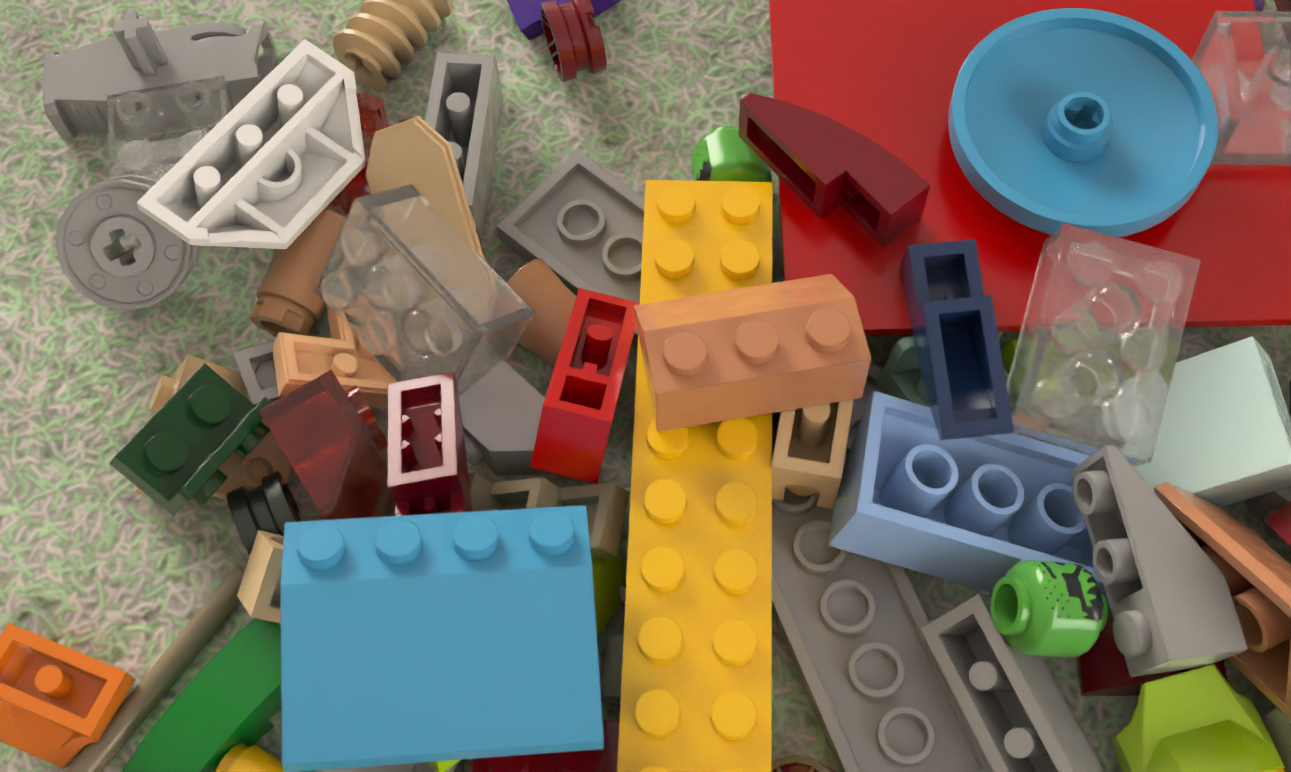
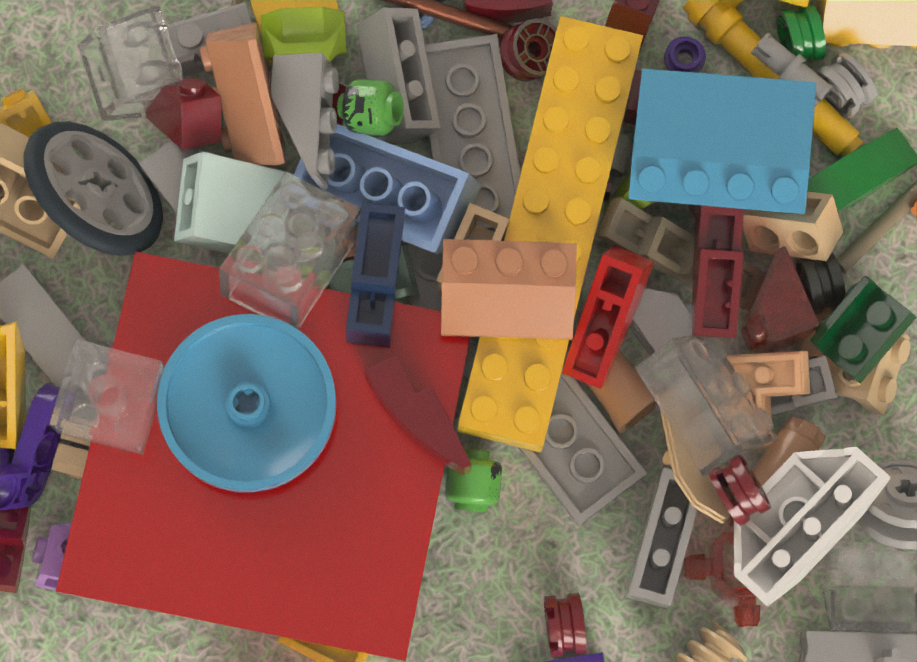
camera: 175 degrees left, 15 degrees up
(355, 158) = (744, 487): none -> dark red wheel

